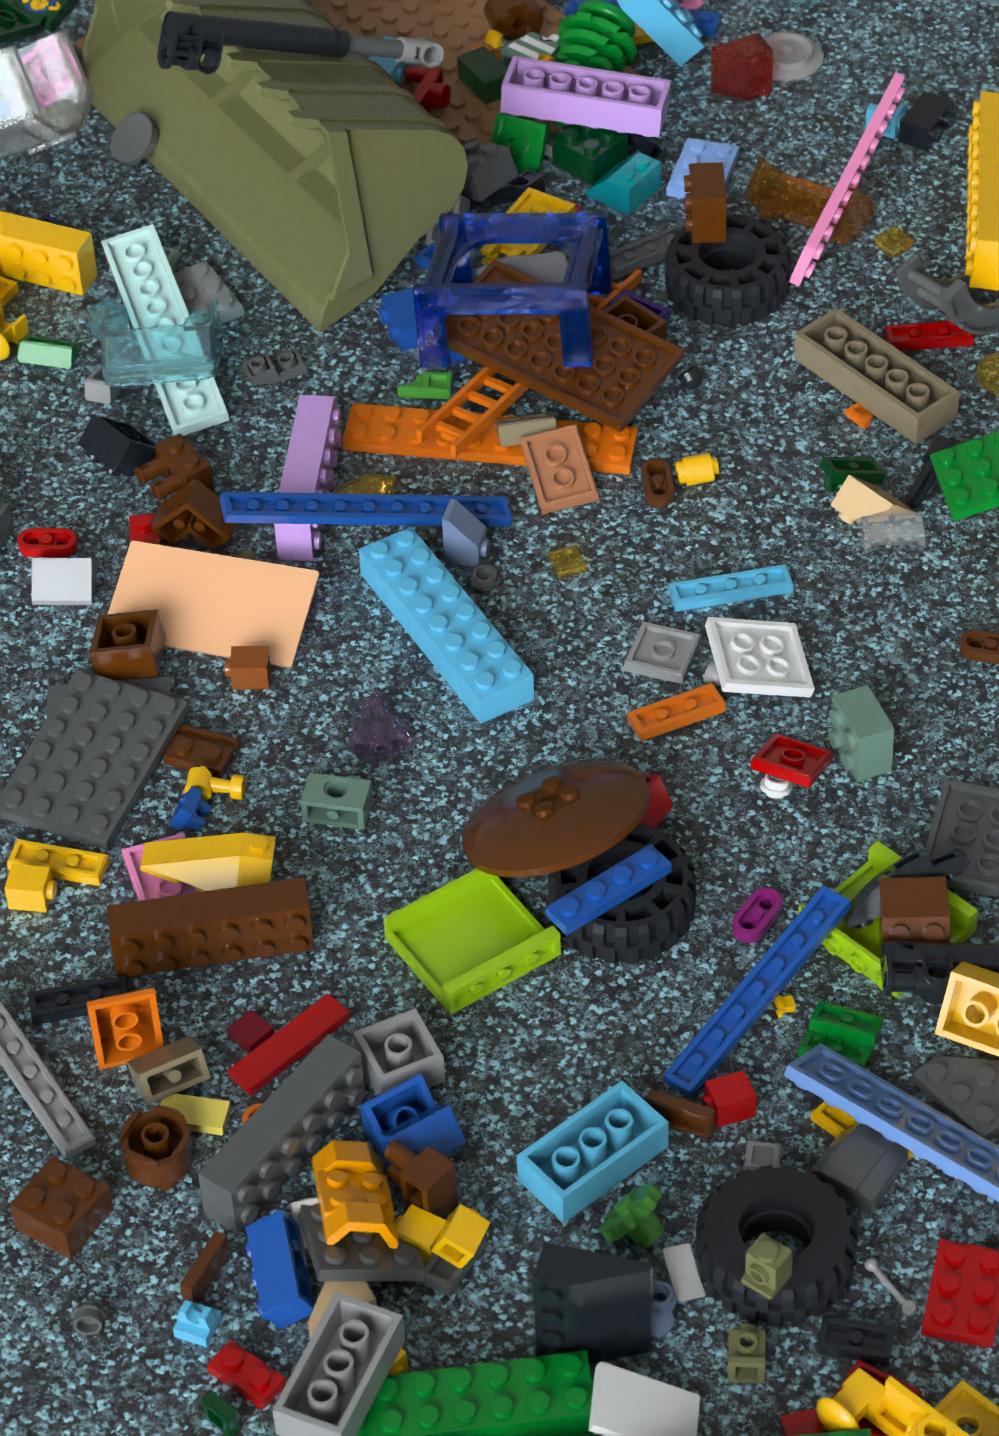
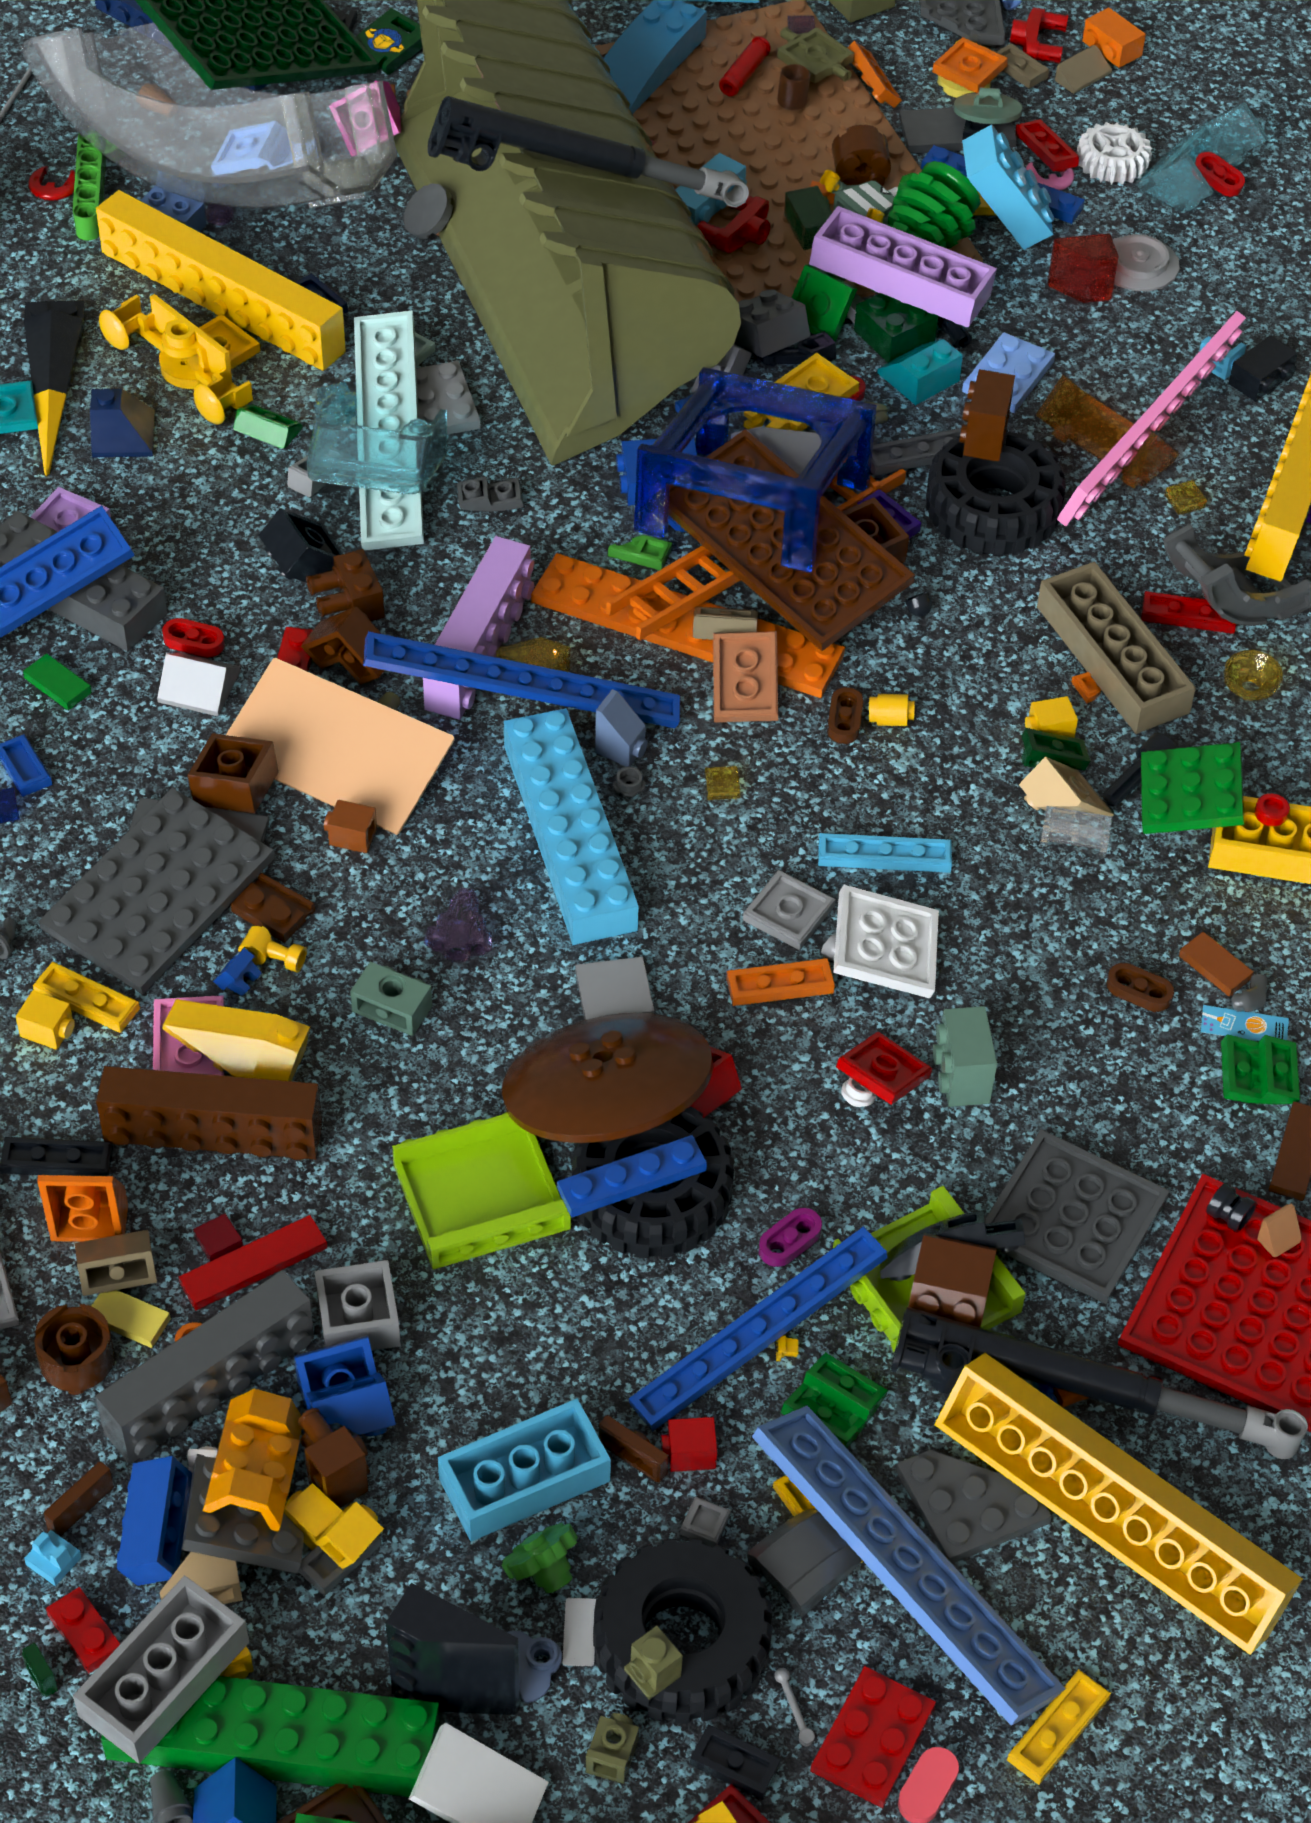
camera: 10 degrees right, 5 degrees up
(530, 749) = (614, 987): none -> light grey tile
(841, 443) = (1053, 716): none -> yellow brick

